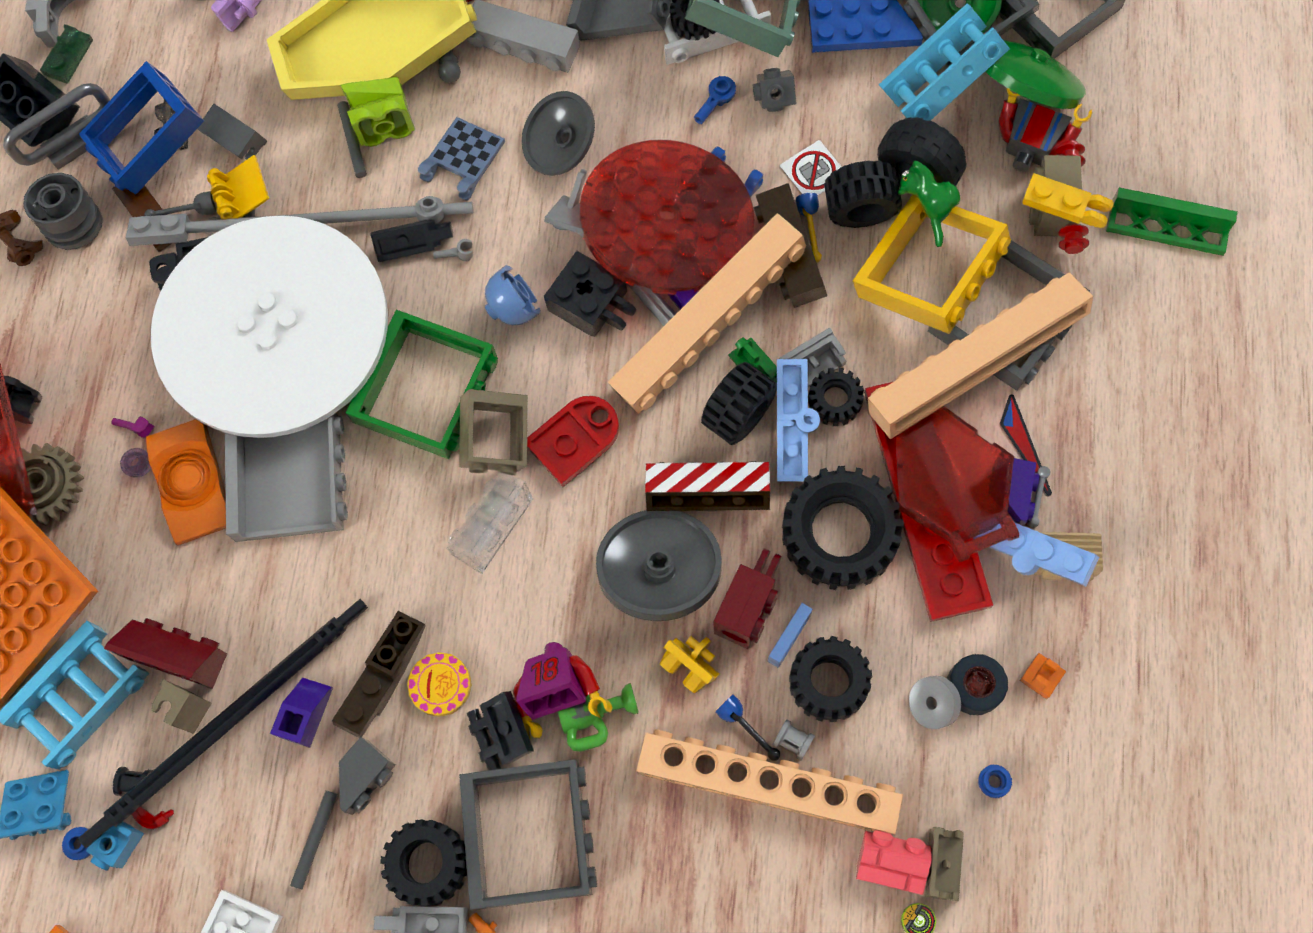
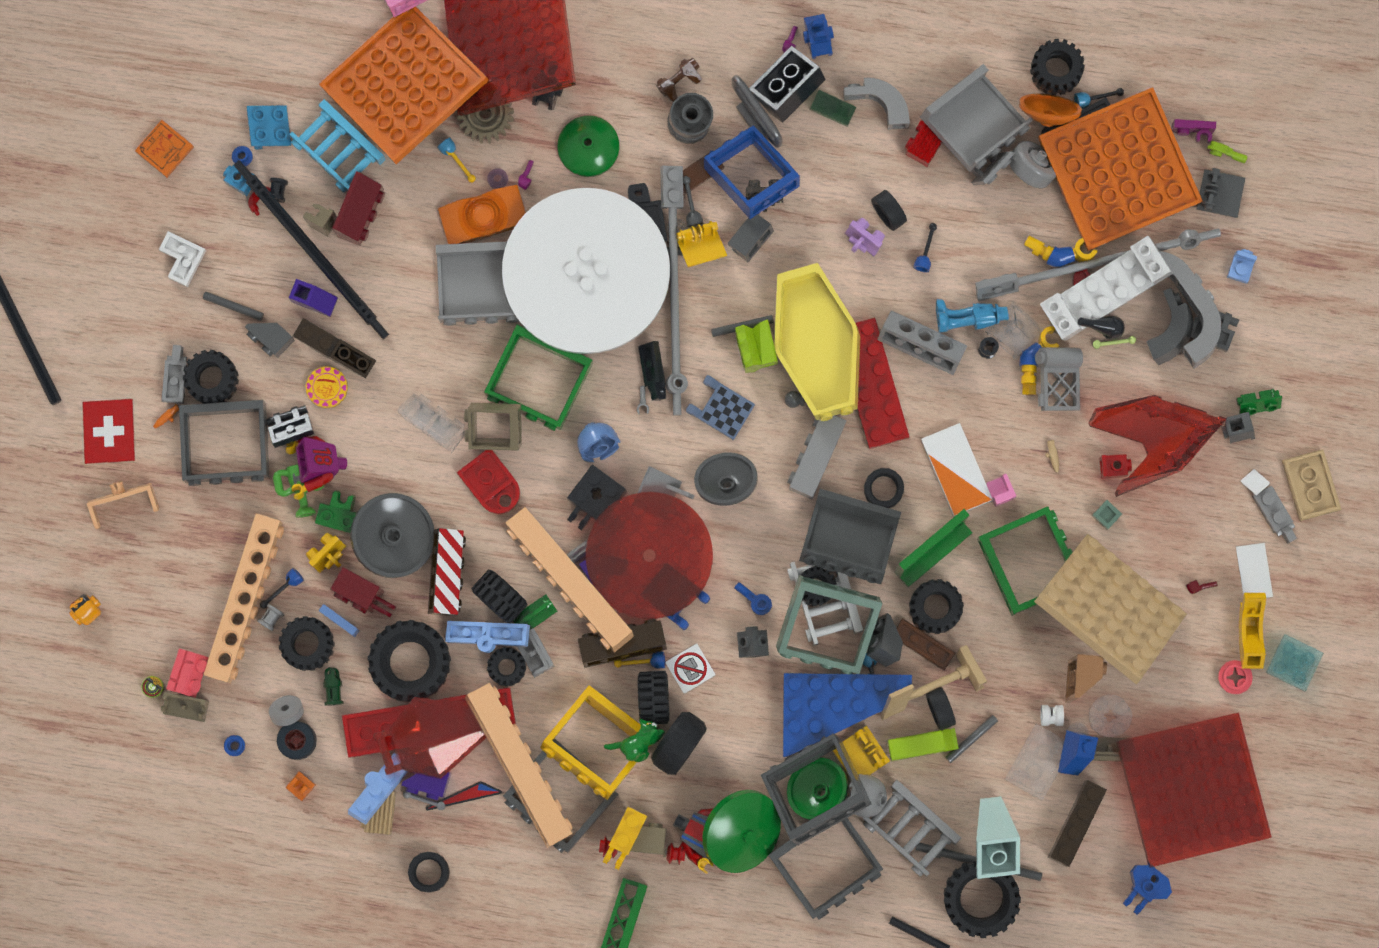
camera: 90 degrees right, 10 degrees up
(87, 534) = (448, 148): none -> hinge
(103, 360) = (591, 159): none -> green dish
(630, 649) = (337, 514): none -> green plate
(885, 639) = (332, 684): none -> dark green piece
(934, 54) = (758, 753): medium azure fence -> none
(1158, 464) = (444, 872): none -> black tyre

